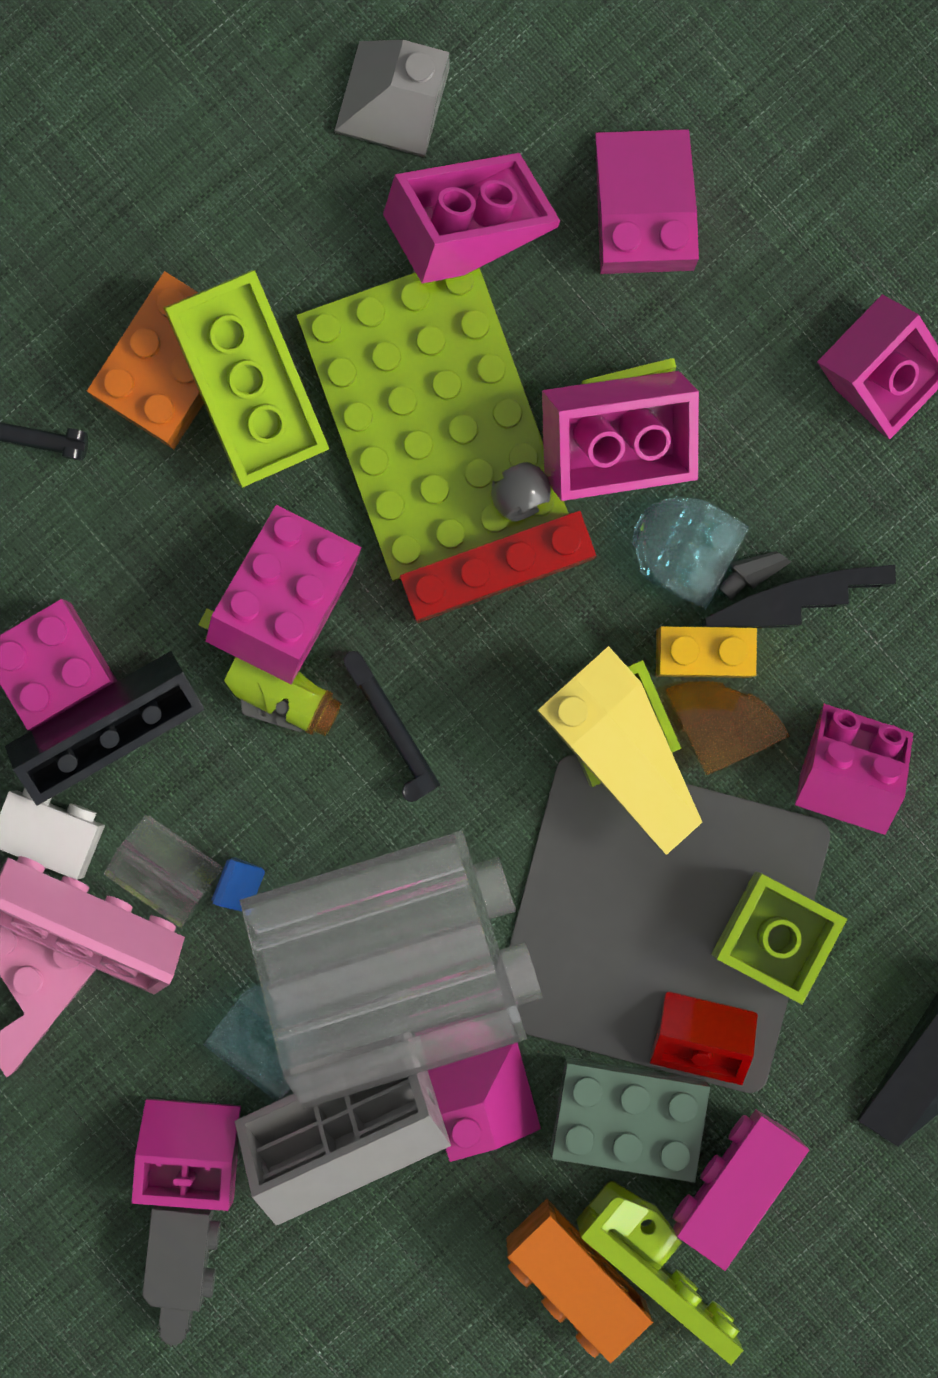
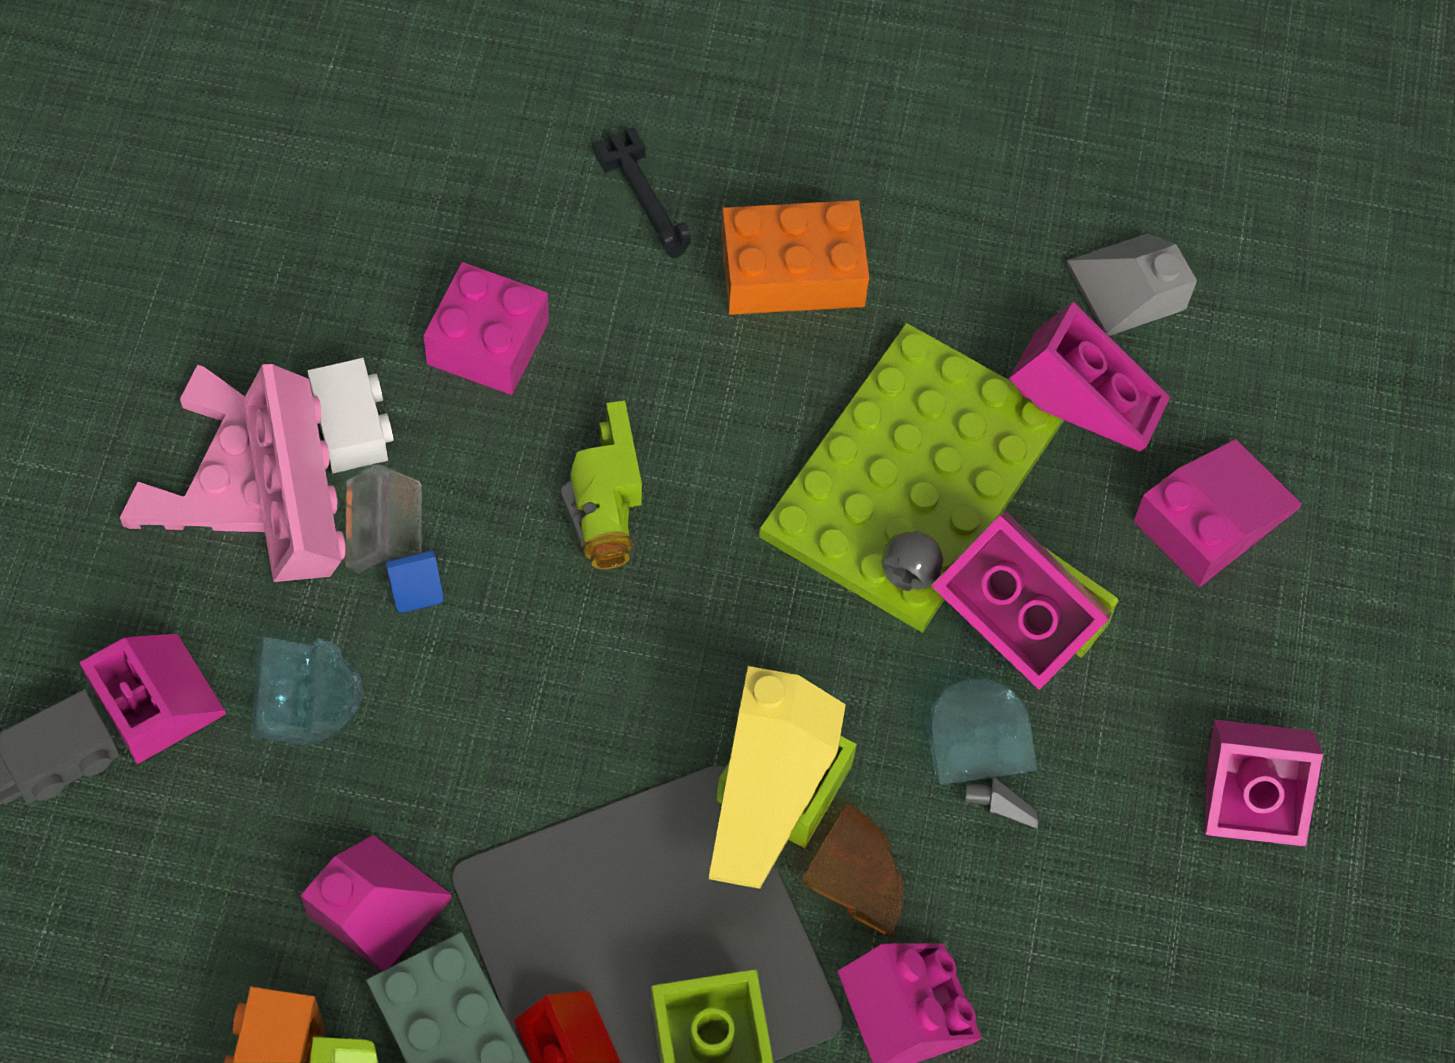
camera: 50 degrees right, 25 degrees down
(103, 728) = (468, 392): black brick -> none
(246, 378) = (827, 301): lime plate -> none
(282, 594) = (681, 443): dark pink brick -> none
(327, 1150) = (261, 788): light grey brick -> none
(388, 968) = (434, 718): clear brick -> none
(424, 778) = (665, 557): black hinge -> none
(498, 566) = (837, 595): red brick -> none
(706, 652) = (905, 805): yellow brick -> none
(783, 604) = (998, 839): black slope -> none

